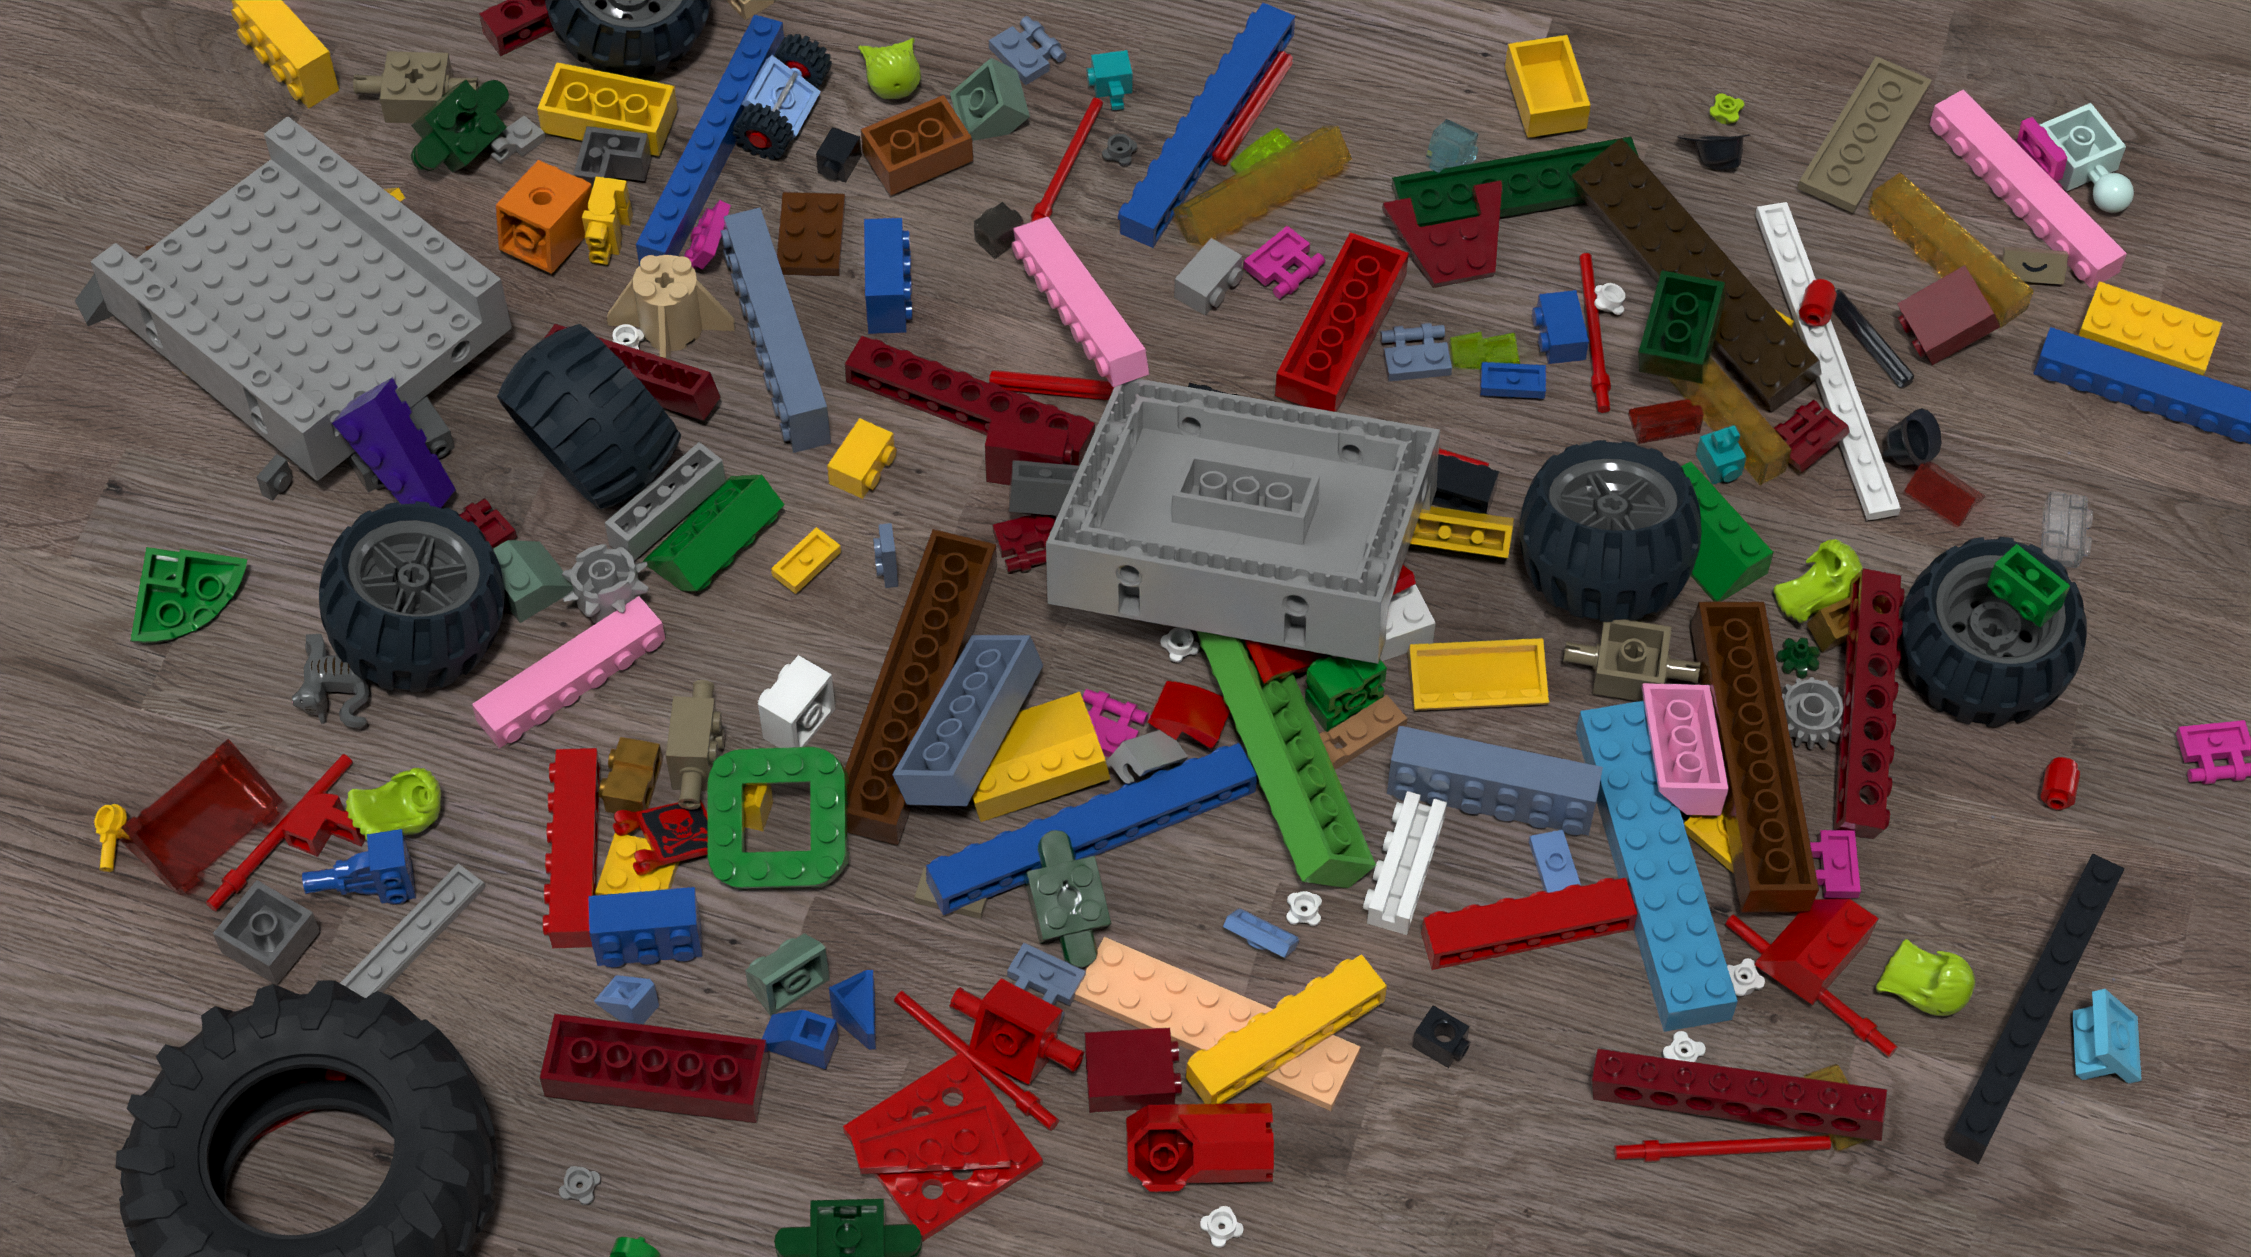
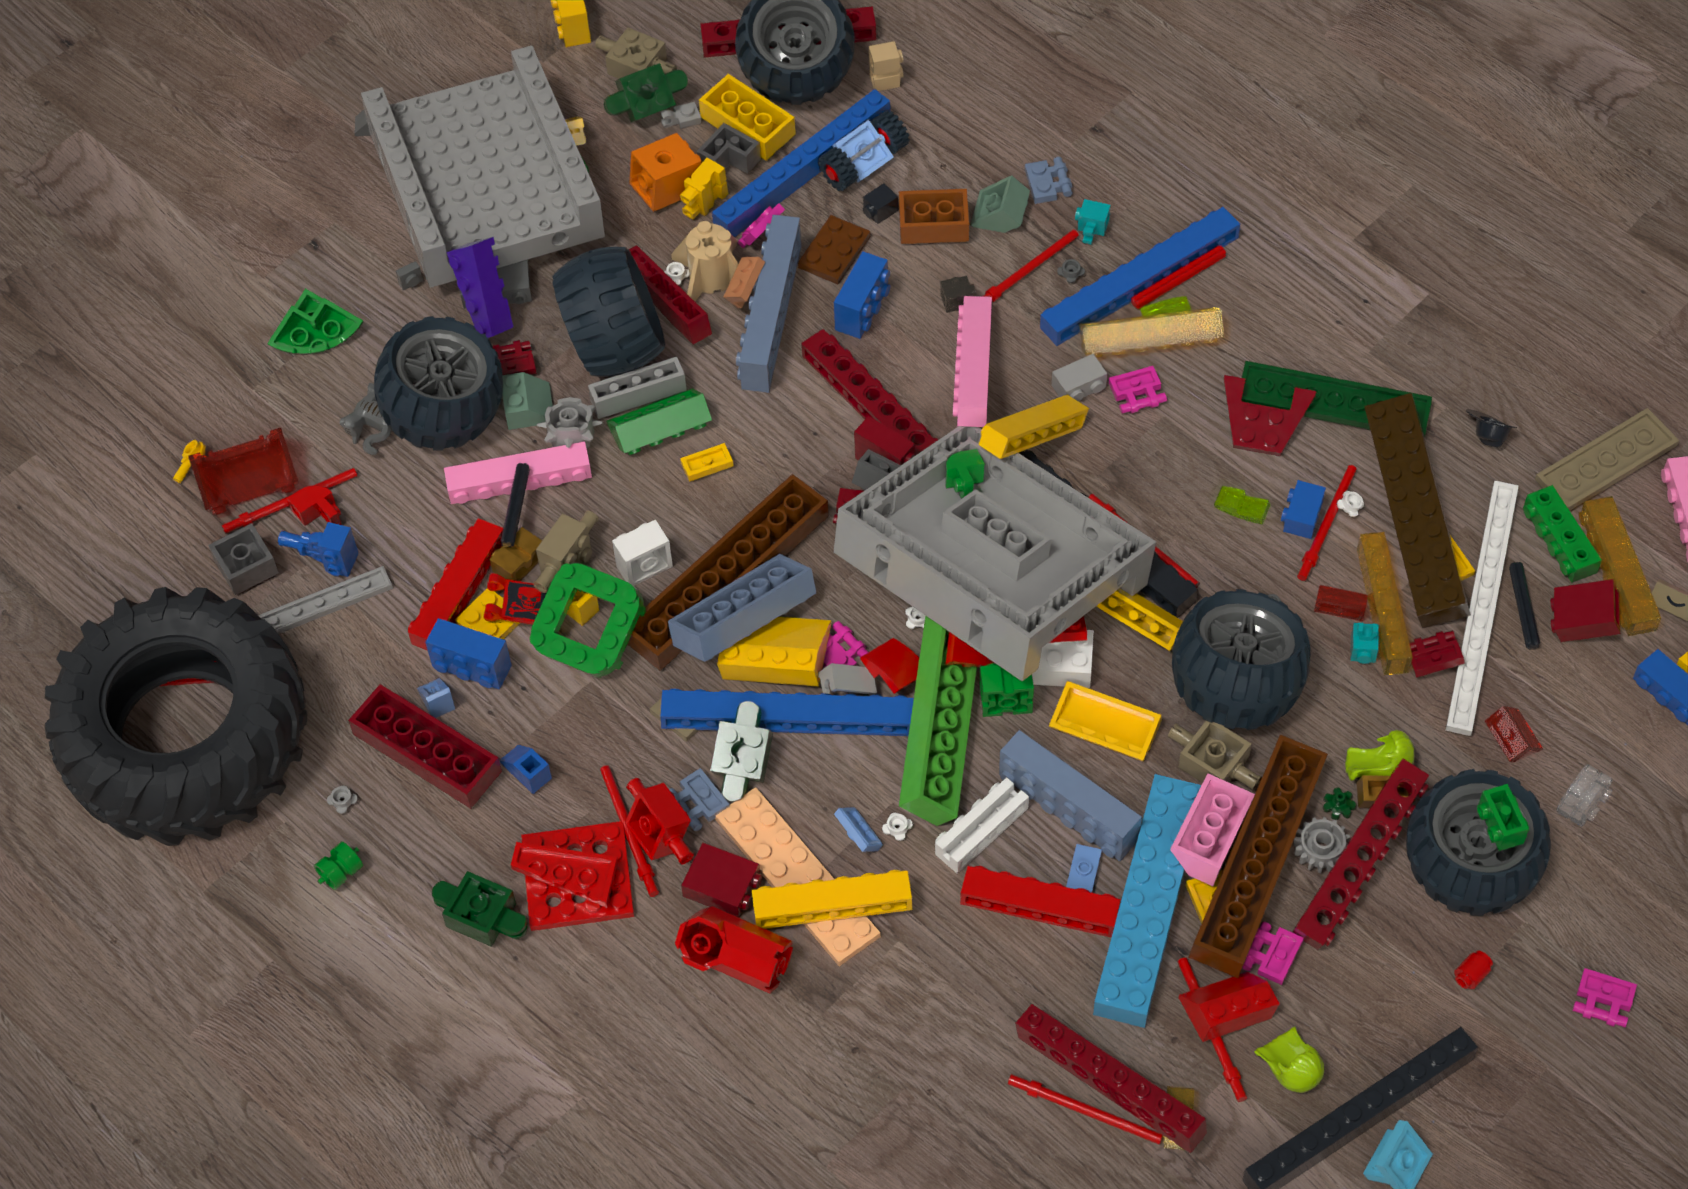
camera: 30 degrees right, 0 degrees up
(404, 803) = (365, 514): lime piece -> none
(597, 712) = (515, 505): none -> black axle
(732, 312) = (743, 280): none -> nougat bracket
(788, 973) = (541, 723): sand green slope -> none
(855, 1007) = (573, 761): blue slope -> none
(861, 458) = (779, 410): yellow brick -> none
(885, 555) = (756, 479): sand blue plate -> none
(892, 69) = (947, 159): lime piece -> none
(1052, 384) = (925, 407): red axle -> none
(1157, 440) = (963, 471): none -> green brick
(1200, 352) = (1033, 426): none -> yellow brick
(1221, 1216) = (719, 1001): white plate -> none
(1341, 324) = (1149, 446): red brick -> none
(1363, 731) = (1003, 726): medium nougat plate -> none
(1416, 361) = (1190, 492): sand blue plate -> none
(1441, 1023) = (936, 940): black brick -> none
(1451, 146) = (1299, 355): clear light blue brick -> none
(1513, 380) = (1248, 532): blue plate -> none
(1547, 86) = (1391, 338): yellow piece -> none
(1681, 327) = (1376, 540): dark green brick -> none
(1682, 1041) = (1099, 1026): white plate -> none
(1726, 109) = (1513, 408): lime plate -> none
(1729, 549) = (1325, 703): green slope -> none
(1753, 981) = (1164, 1009): white plate -> none
(1818, 302) = (1495, 564): red brick -> none
(1866, 238) = (1561, 534): none -> green brick
(1914, 439) = (1512, 687): black piece -> none

